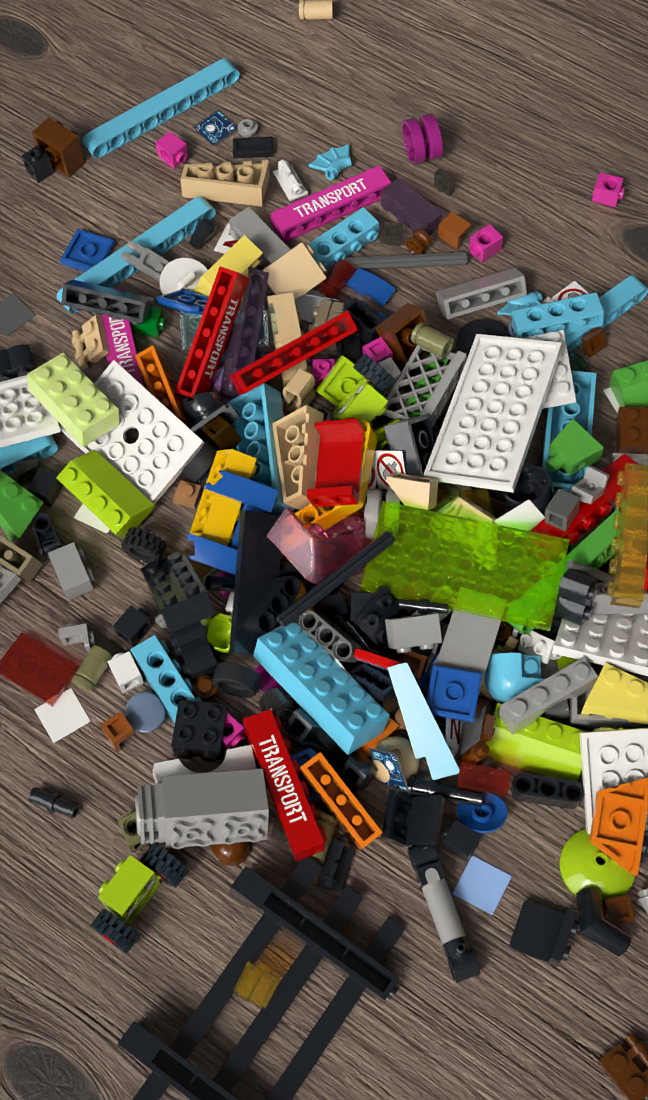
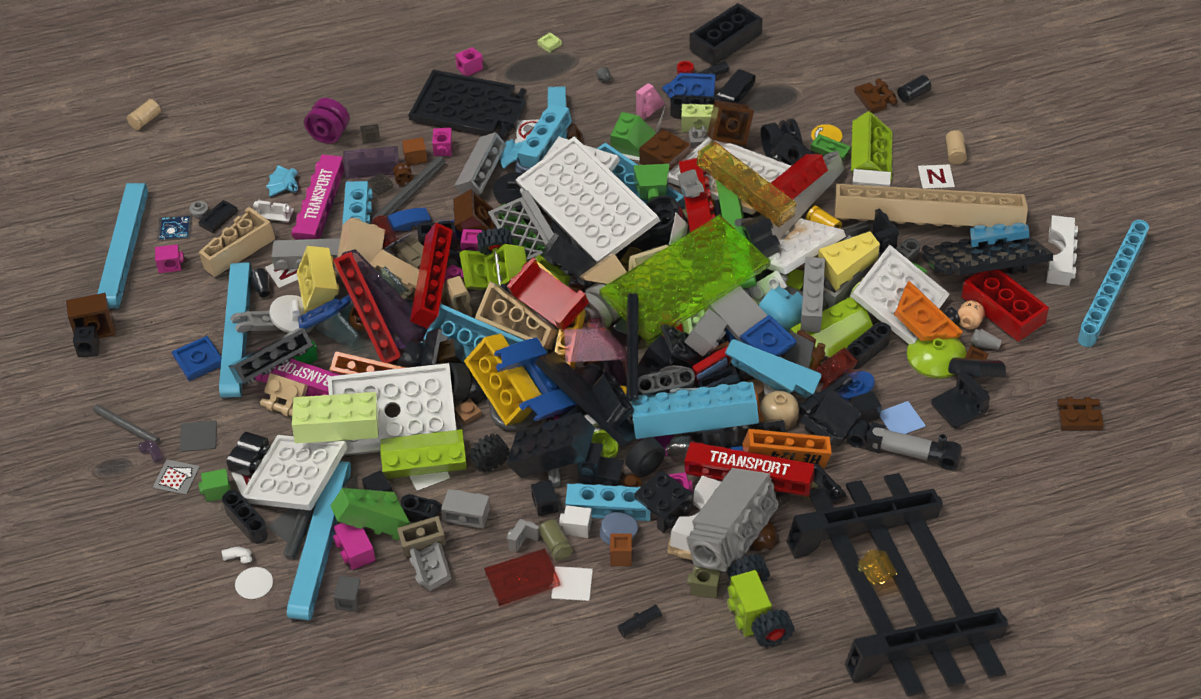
camera: 55 degrees left, 15 degrees down
(384, 466) = (567, 276): sticker -> none
(393, 766) = (788, 403): sticker -> none
(423, 606) = (694, 315): black bar -> none
(432, 340) = (498, 200): olive piece -> none
(555, 229) = (468, 104): none -> black plate
(562, 509) = (694, 206): dark grey brick -> none

